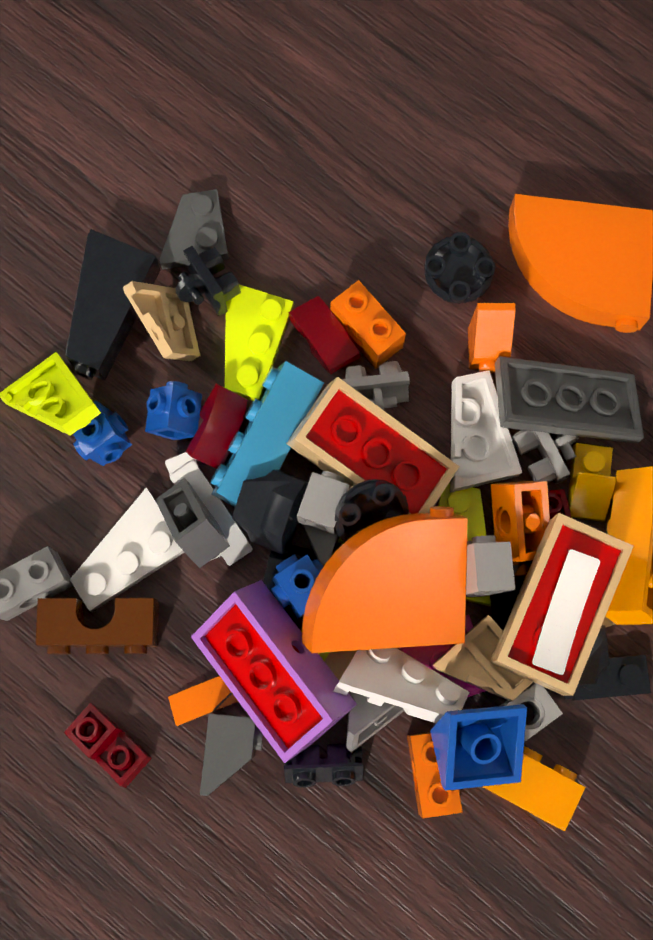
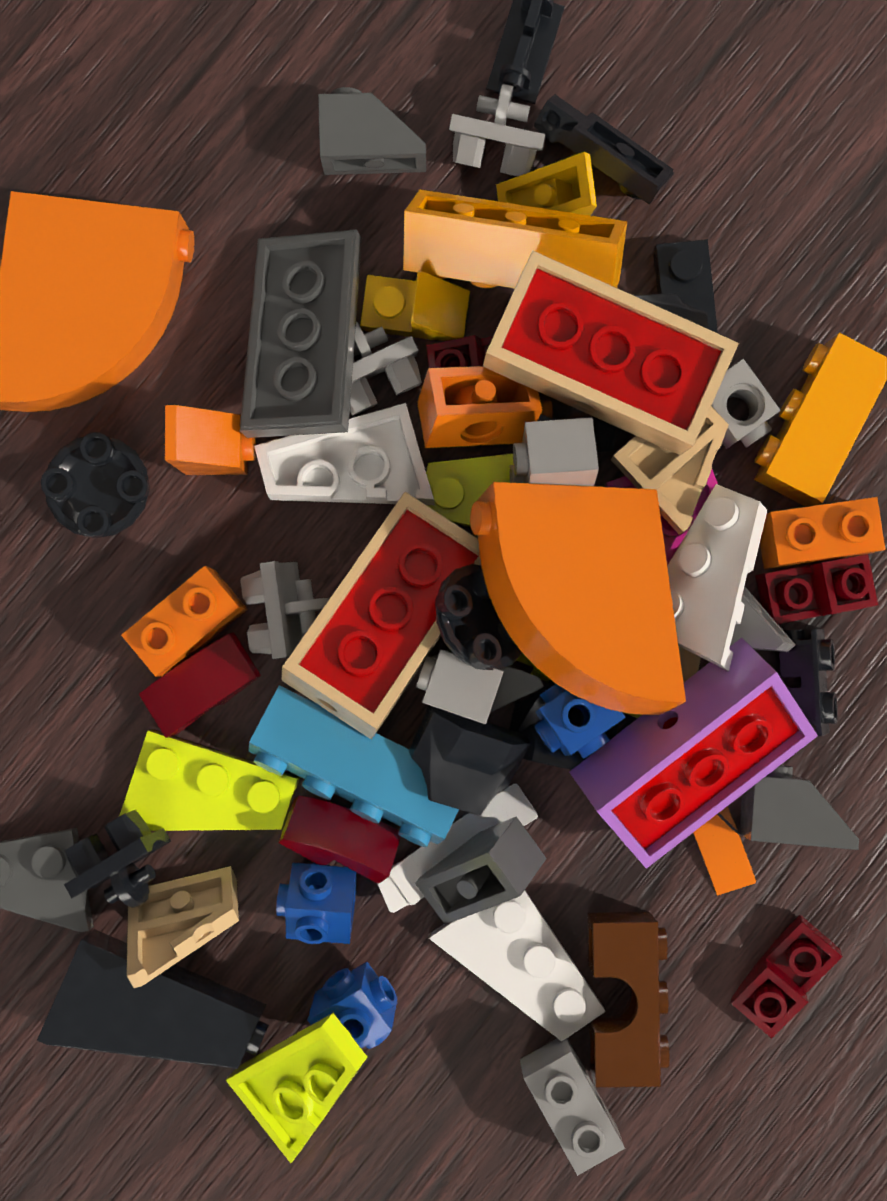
camera: 90 degrees left, 10 degrees up
(392, 774) = (818, 589): none -> dark red slope
(480, 746) = (801, 471): blue slope -> none
(565, 612) = (627, 349): white sticker -> none

